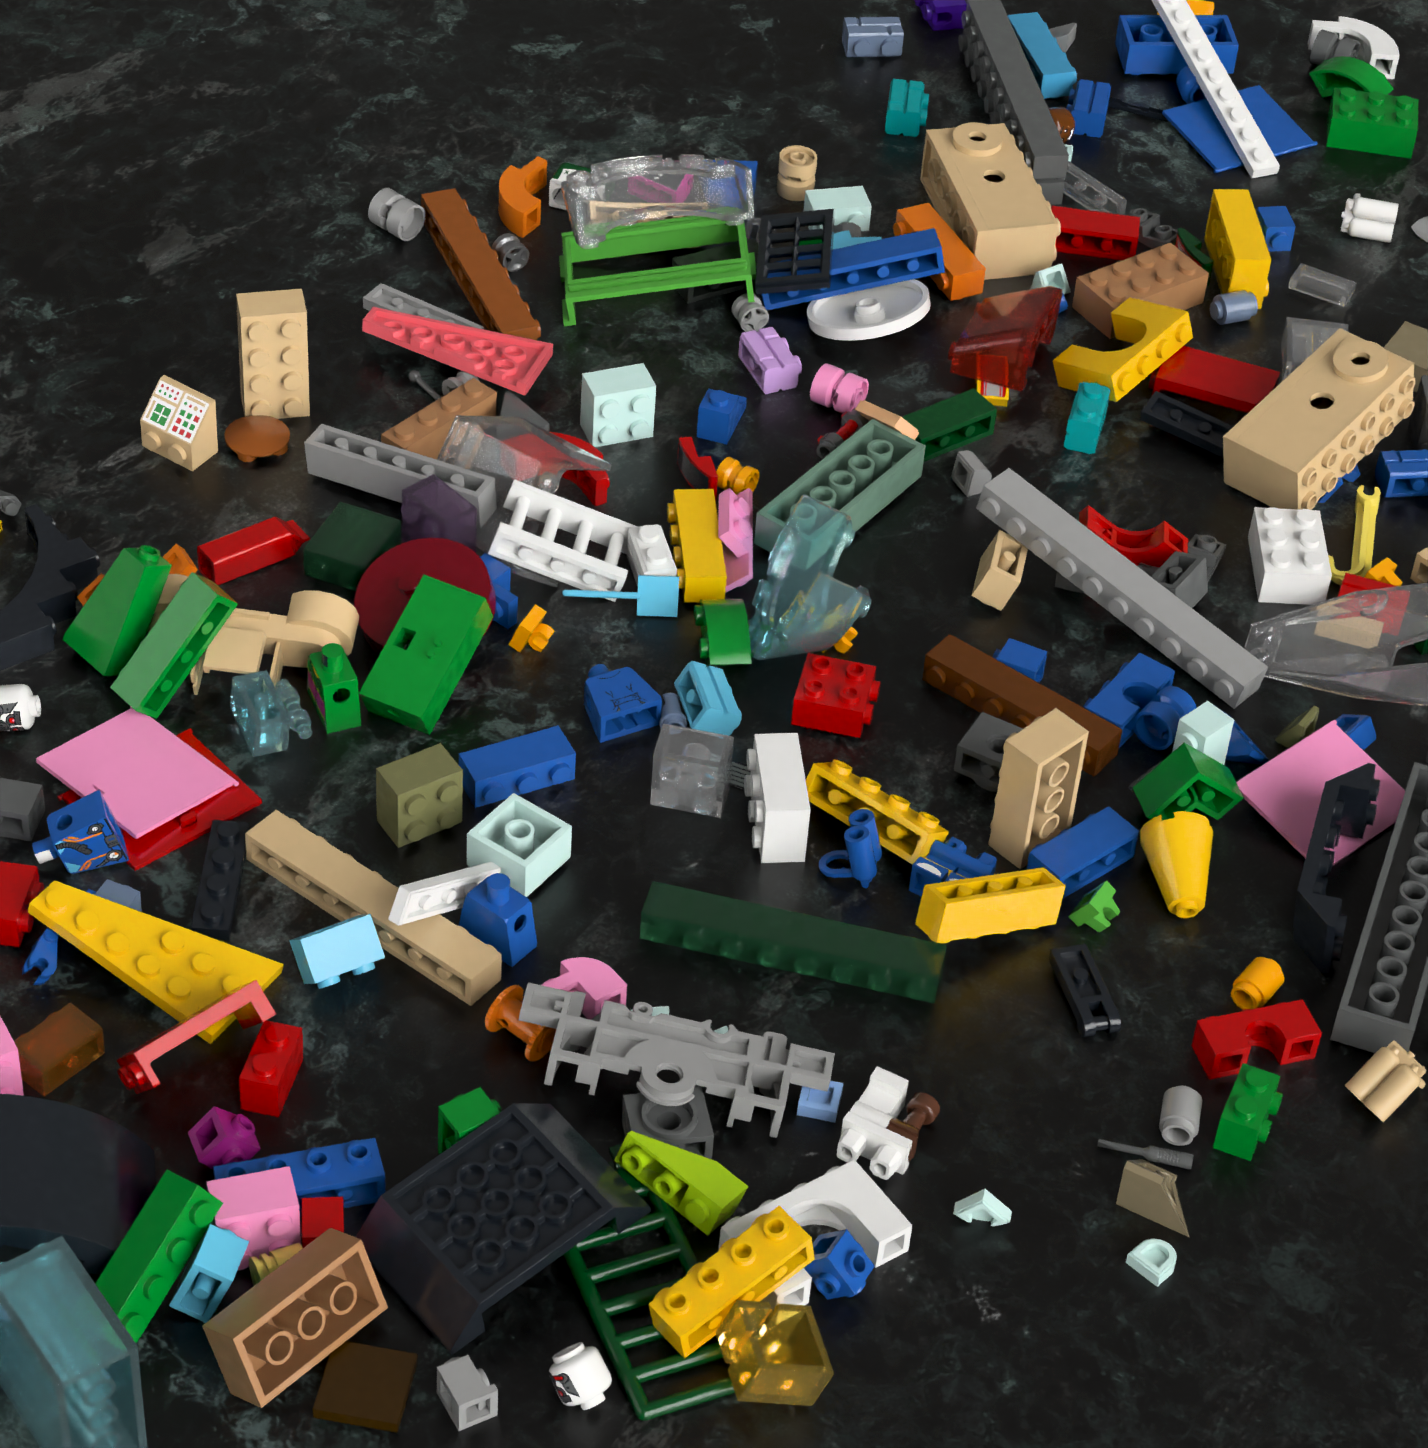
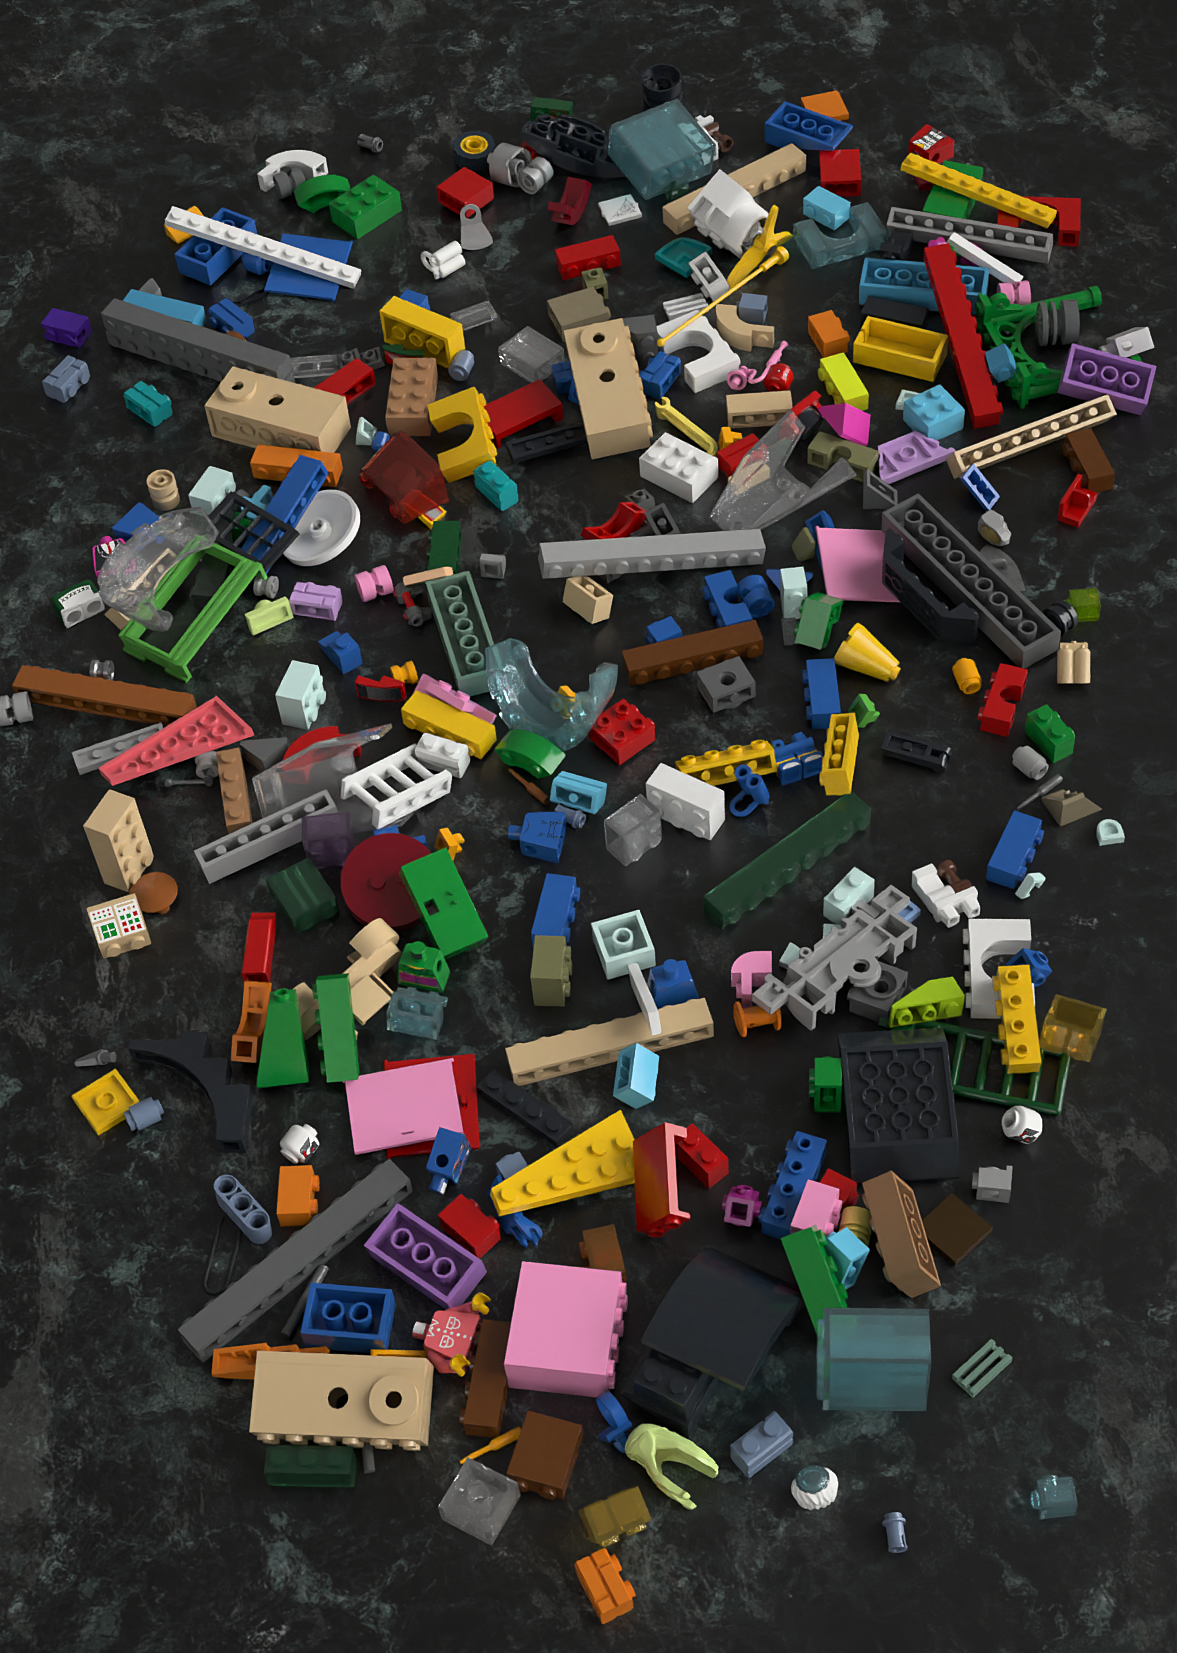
camera: 45 degrees left, 10 degrees up
(517, 205) = (53, 643): orange arch -> none
(654, 595) = (470, 769): medium azure piece -> none
(682, 662) = (532, 788): none -> dark orange piece
(710, 334) = (268, 614): none -> yellowish green tile
(797, 1019) = (849, 890): none -> light aqua brick
(1022, 1163) = (1015, 850): none -> blue brick
(1037, 785) = (786, 681): tan brick -> none

